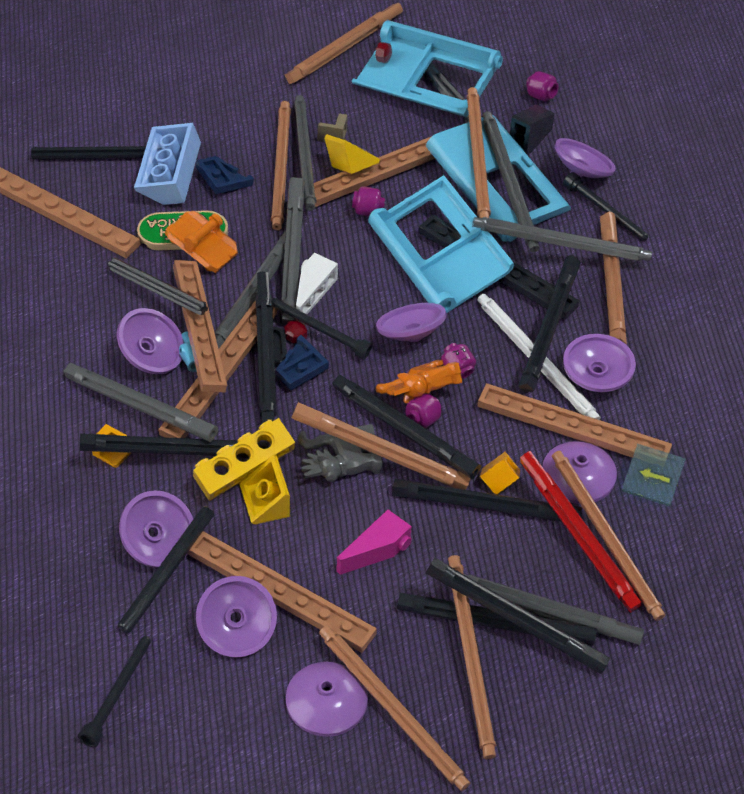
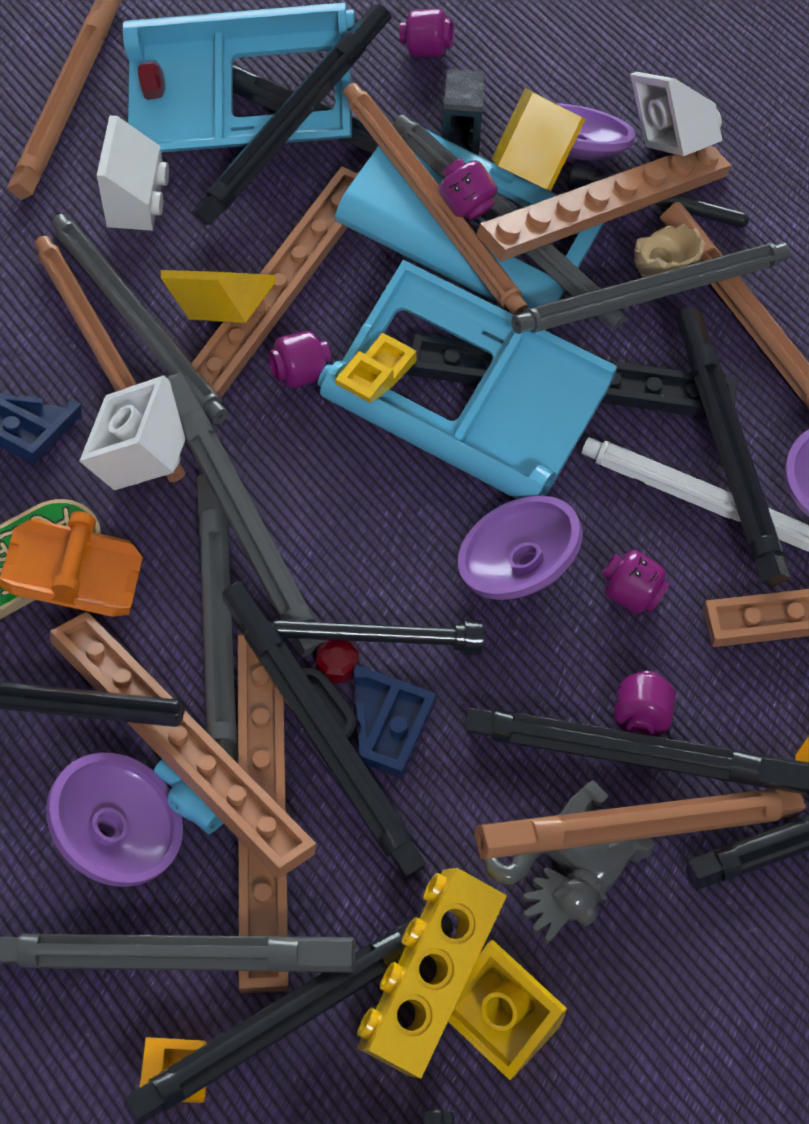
camera: 30 degrees left, 10 degrees up
(265, 198) = (135, 435): none -> white slope
(315, 280) = (307, 550): white slope -> none
(338, 130) = (150, 258): dark tan panel -> none
(343, 89) = (130, 177): none -> white slope
(377, 543) = (749, 987): dark pink slope -> none
(399, 220) = (378, 369): none -> yellow slope
(422, 380) = (610, 653): orange animal -> none
(438, 93) = (291, 115): none -> black piece
(494, 155) = (467, 189): none -> magenta head
(550, 149) = (537, 139): none -> yellow slope
(570, 193) = (600, 202): none -> nougat plate
(589, 228) = (668, 250): none -> tan hair
(637, 171) = (674, 115): none -> white slope

